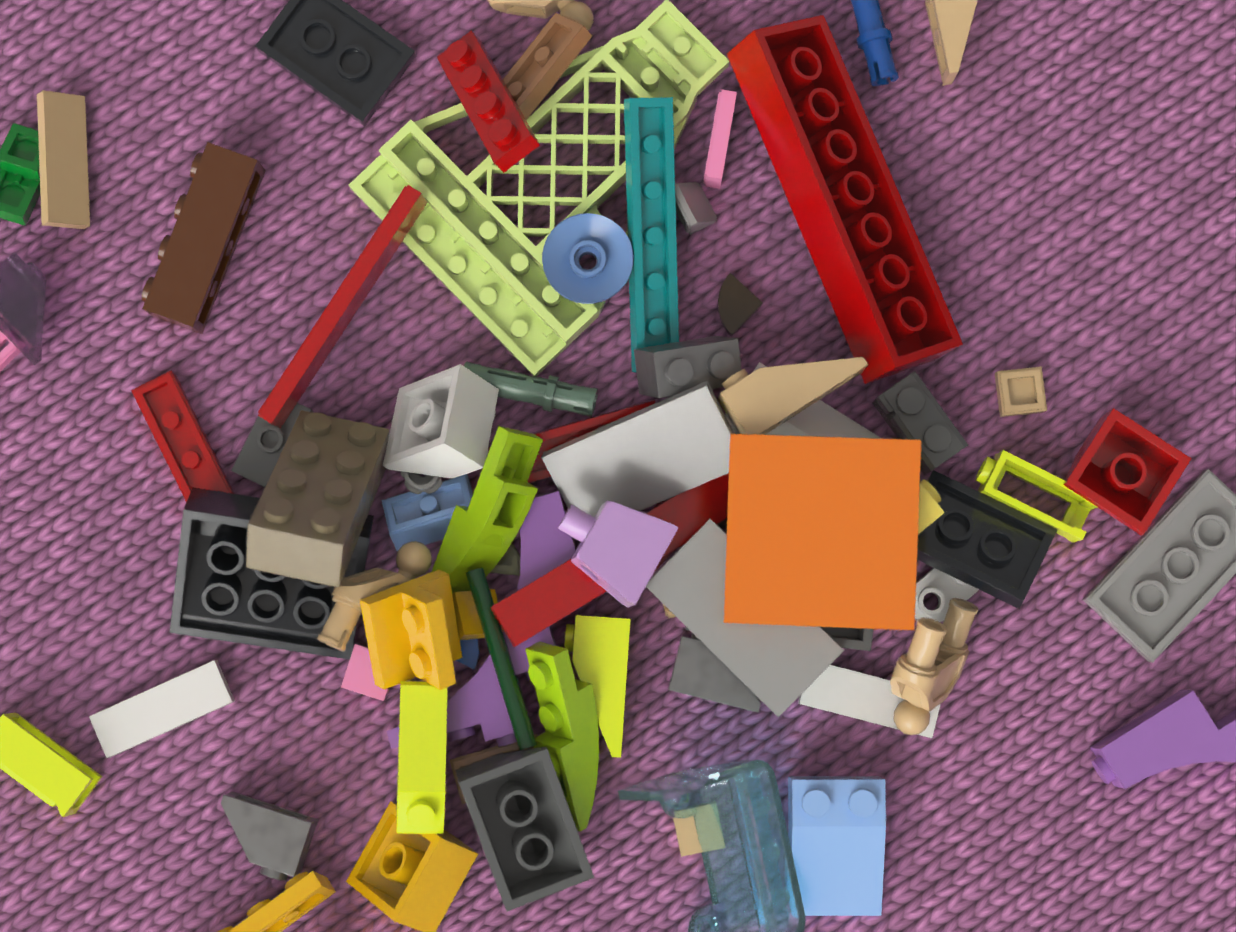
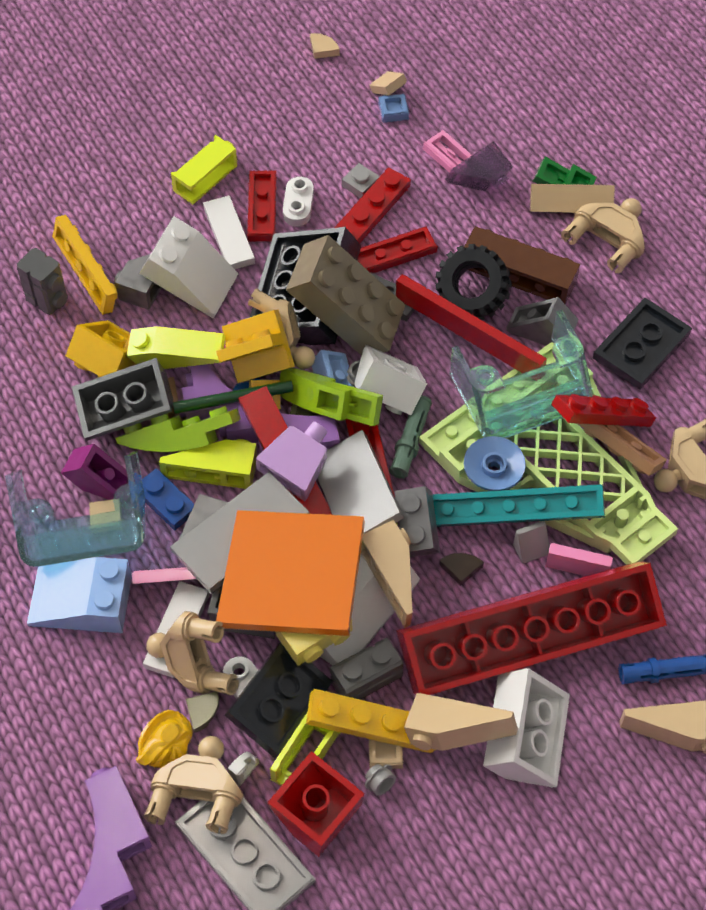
camera: 90 degrees right, 25 degrees down
(41, 503) = (359, 180): none -> light grey plate
(88, 600) = (298, 195): none -> white plate
(101, 660) = (262, 206): none -> red tile
(102, 485) = (375, 204): none -> red plate
(116, 91) = (614, 225): none -> tan connector
(222, 297) = (470, 258): none -> black tyre
(256, 760) = (190, 268): none -> white slope
(311, 200) = (537, 320): none -> flat silver slope
(504, 247) = (524, 400): none -> clear light blue windscreen
(636, 852) = (95, 471): none -> magenta slope
(662, 742) = (166, 499): none -> blue plate
(799, 736) = (162, 575): none -> bright pink tile
(980, 204) = (541, 720): none -> white slope
(989, 646) = (202, 710): none -> tile
(998, 409) = (359, 718): none -> yellow plate
(1009, 304) = (452, 723): none -> tan slope
(1038, 689) = (164, 739): none -> yellow hat
(1065, 395) = (379, 779): none -> light grey plate
(1074, 583) = (242, 767): none -> white tile
(1100, 634) = (196, 779): none -> tan connector

